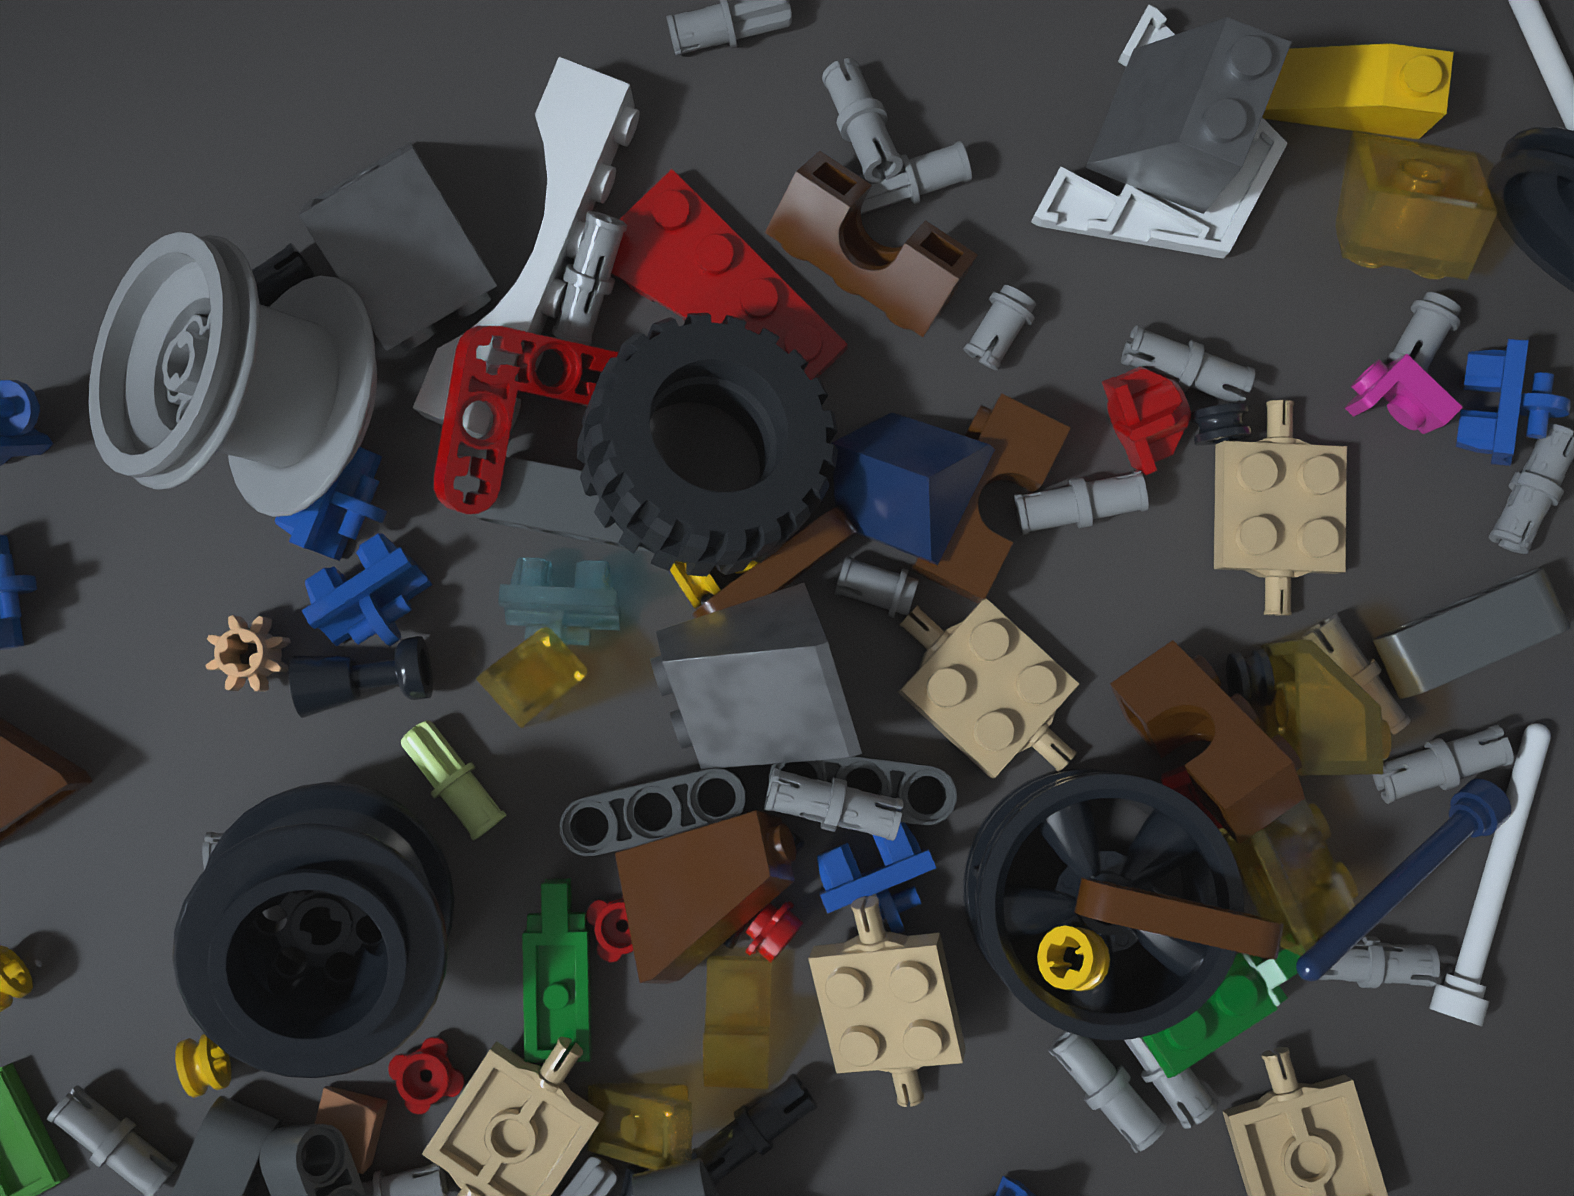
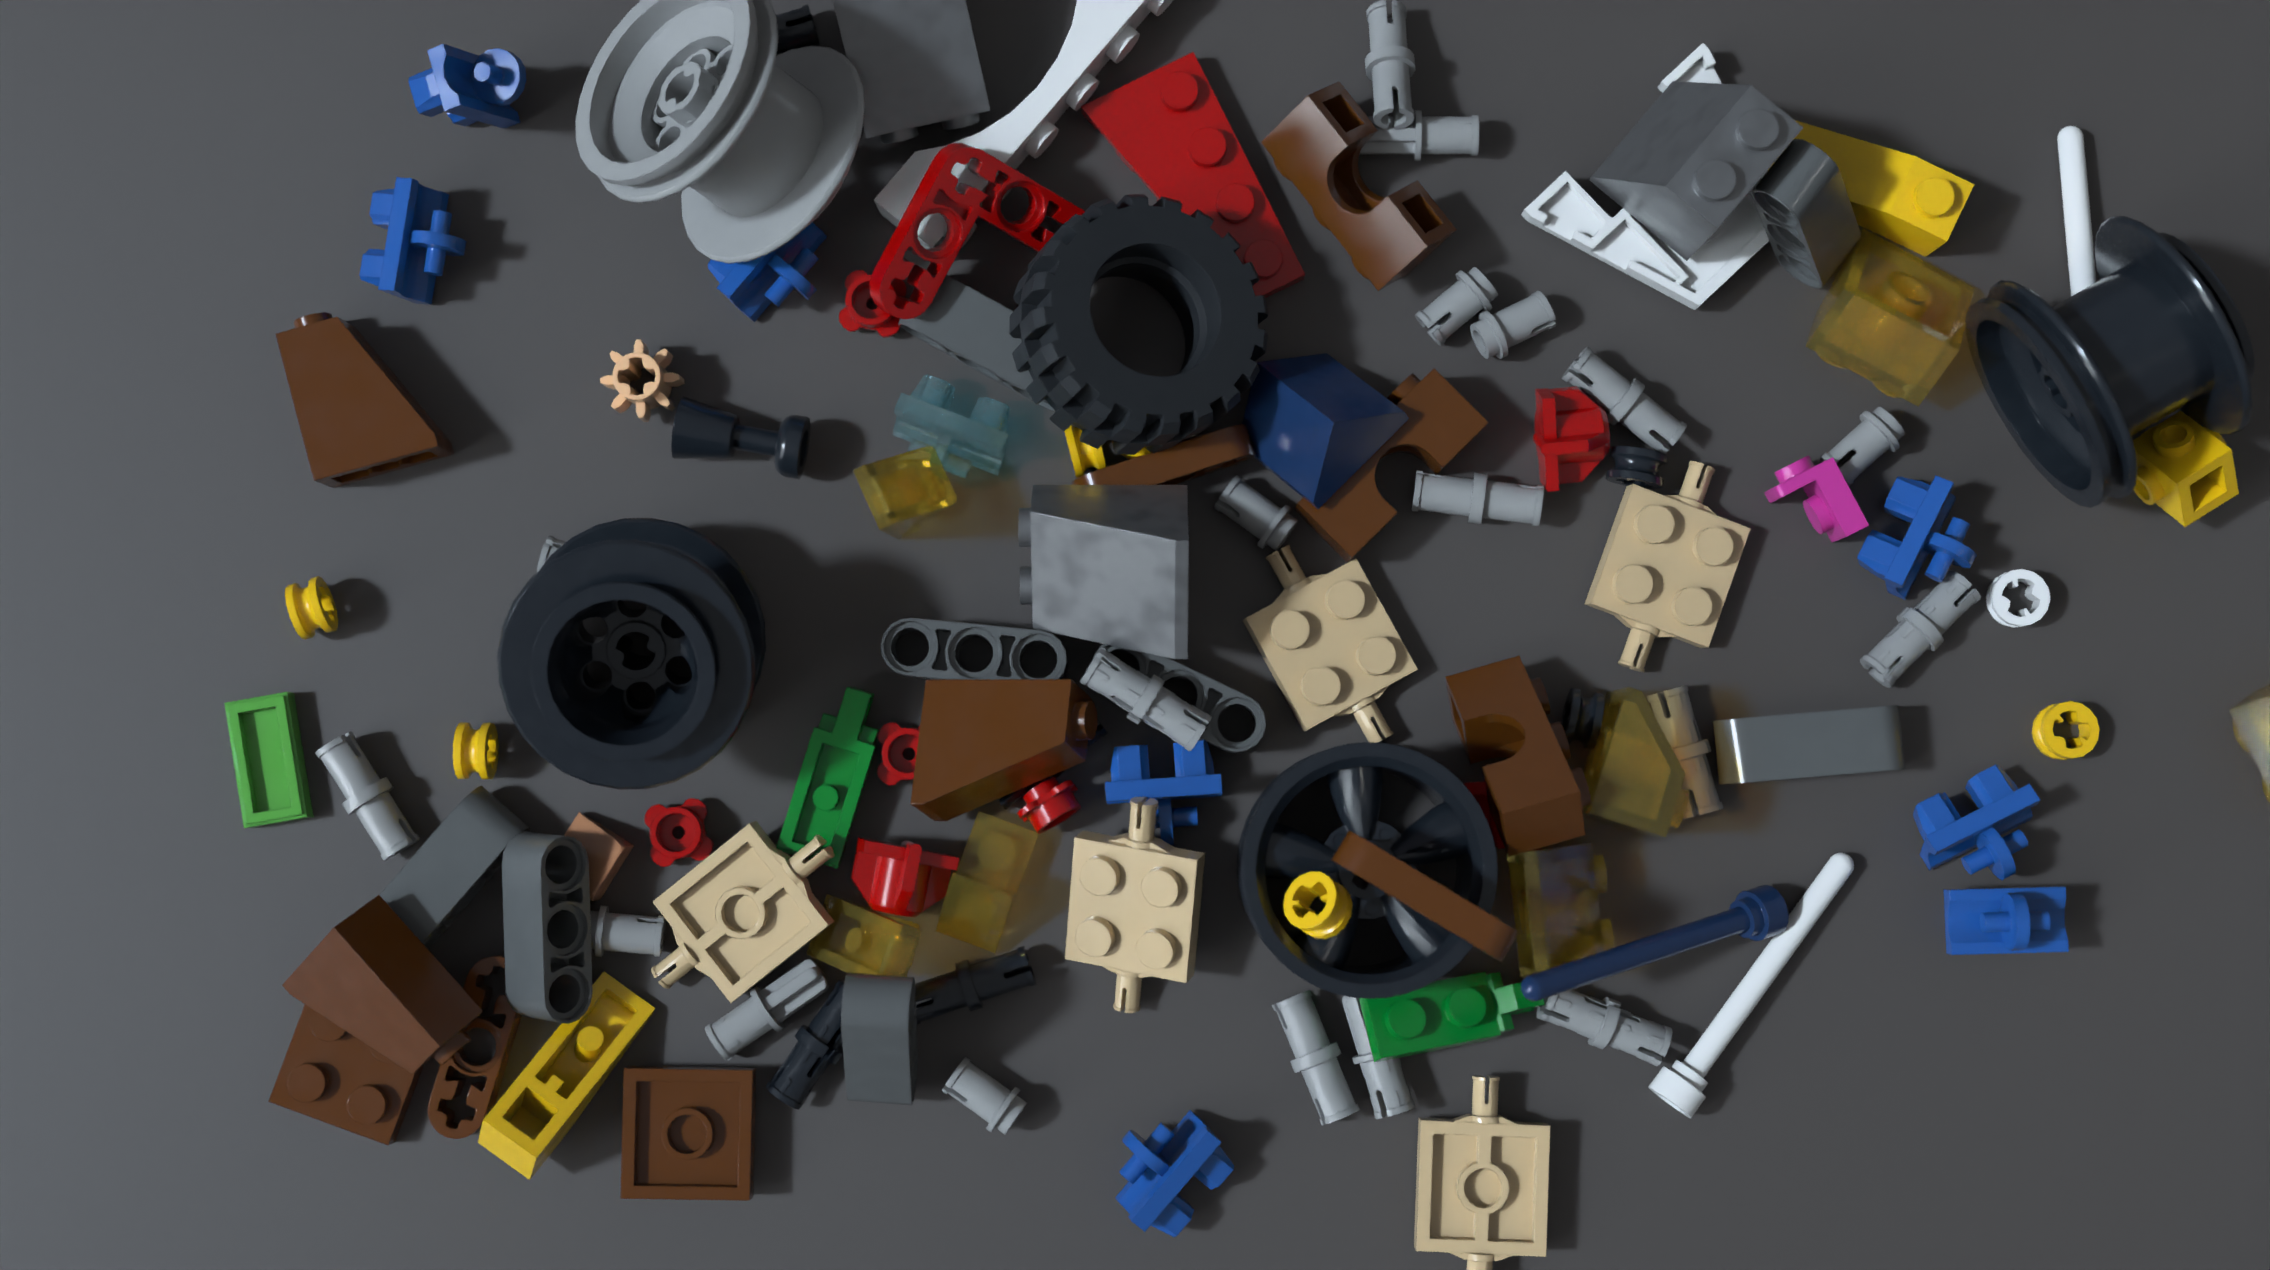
camera: 25 degrees right, 0 degrees up
(368, 600) = (771, 367): blue hips -> none
(433, 519) = (858, 315): none -> red plate
(452, 779) = (794, 563): yellowish green axle -> none
(589, 278) = (1080, 131): light grey pin -> none
(653, 1047) = (901, 877): none -> red piece
(1047, 339) = (1512, 325): none -> light grey pin
(1308, 130) = (1807, 213): none -> dark grey beam
(1444, 763) = (1739, 860): light grey pin -> none

